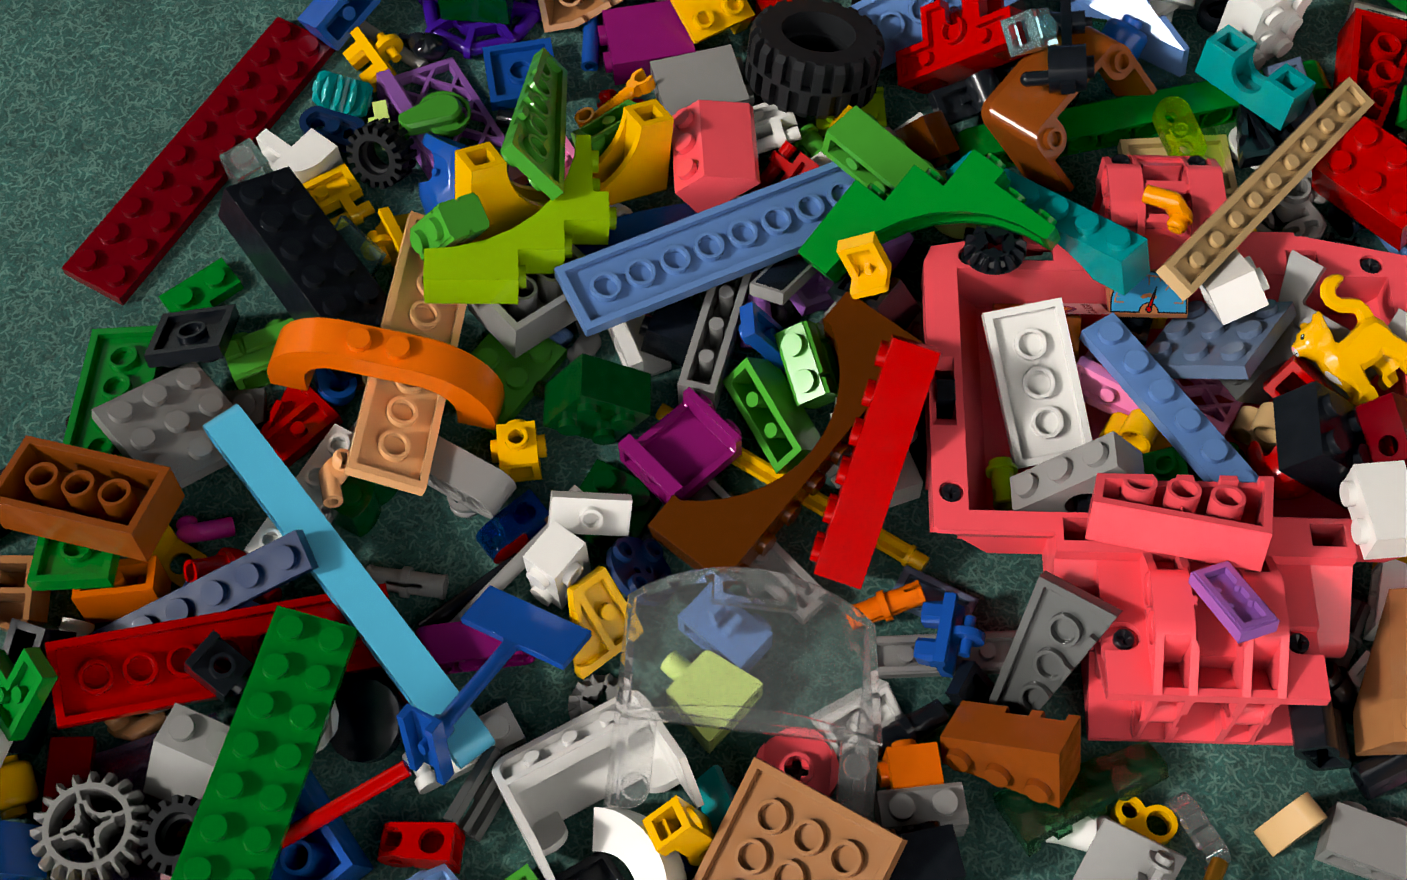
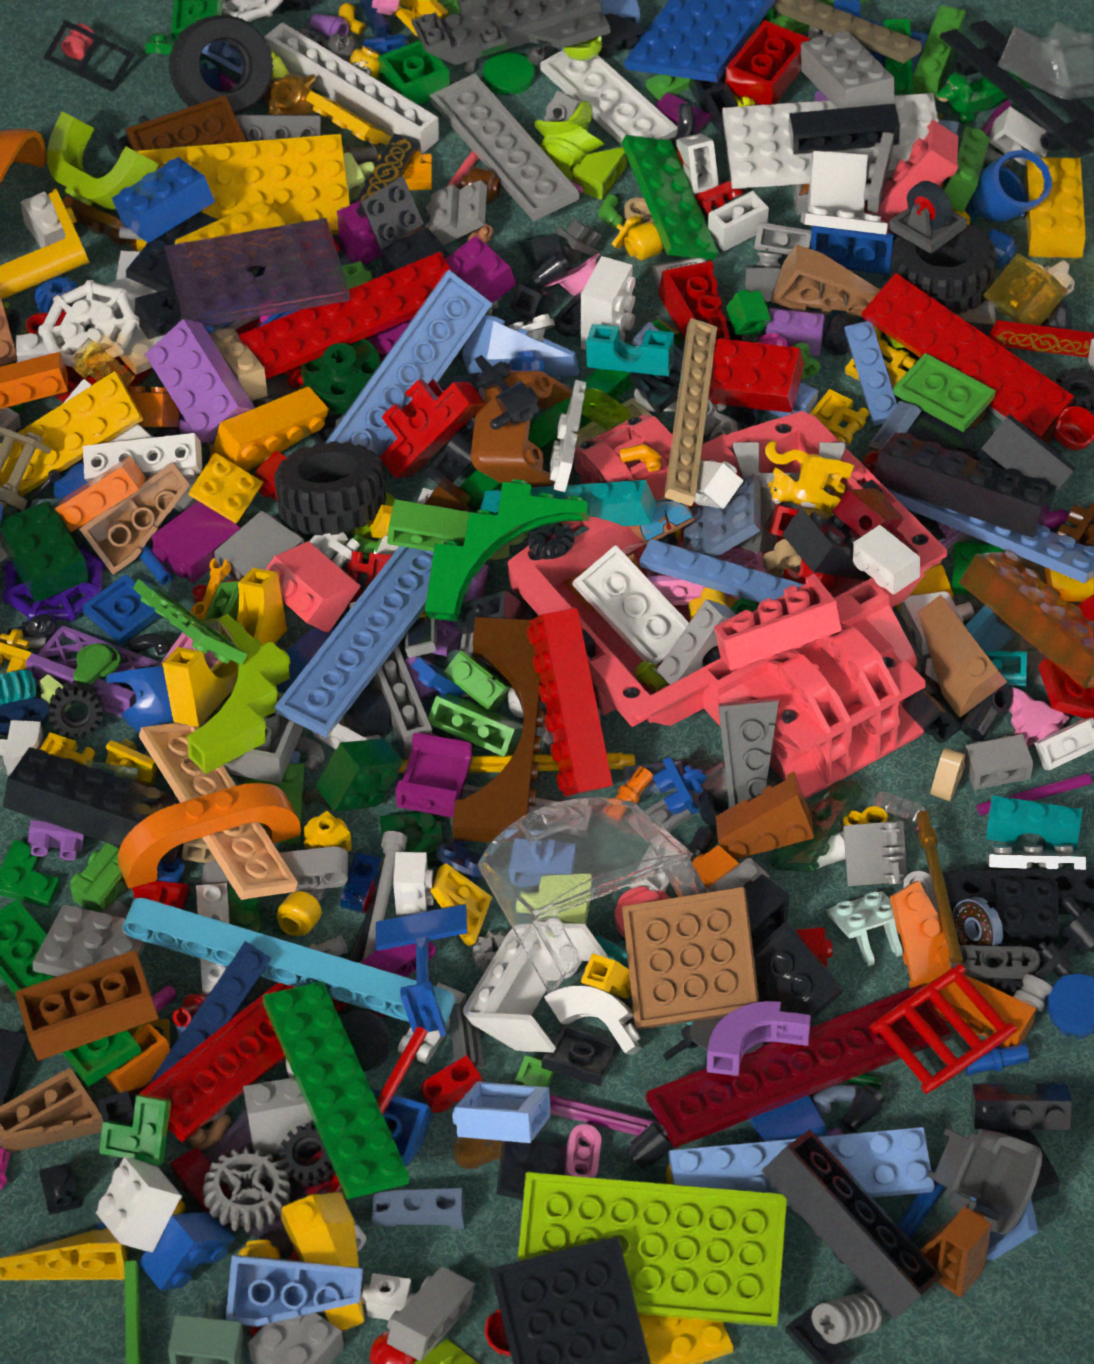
camera: 35 degrees left, 10 degrees down
(192, 336) = (52, 888): black plate -> none
(201, 667) = (255, 1050): black brick -> none
(243, 272) = (49, 835): none -> medium lavender hips
(331, 478) = (228, 909): light nougat arm -> none
(424, 521) = (299, 913): none -> yellow head
(450, 224) = (186, 718): bright green brick -> none
(591, 512) = (414, 837): white plate -> none
(866, 264) = (478, 593): yellow bracket -> none
(1039, 31) = (482, 389): clear light blue brick -> none
(1103, 142) = (563, 450): none -> white wing
(1233, 601) = (838, 652): medium lavender plate -> none

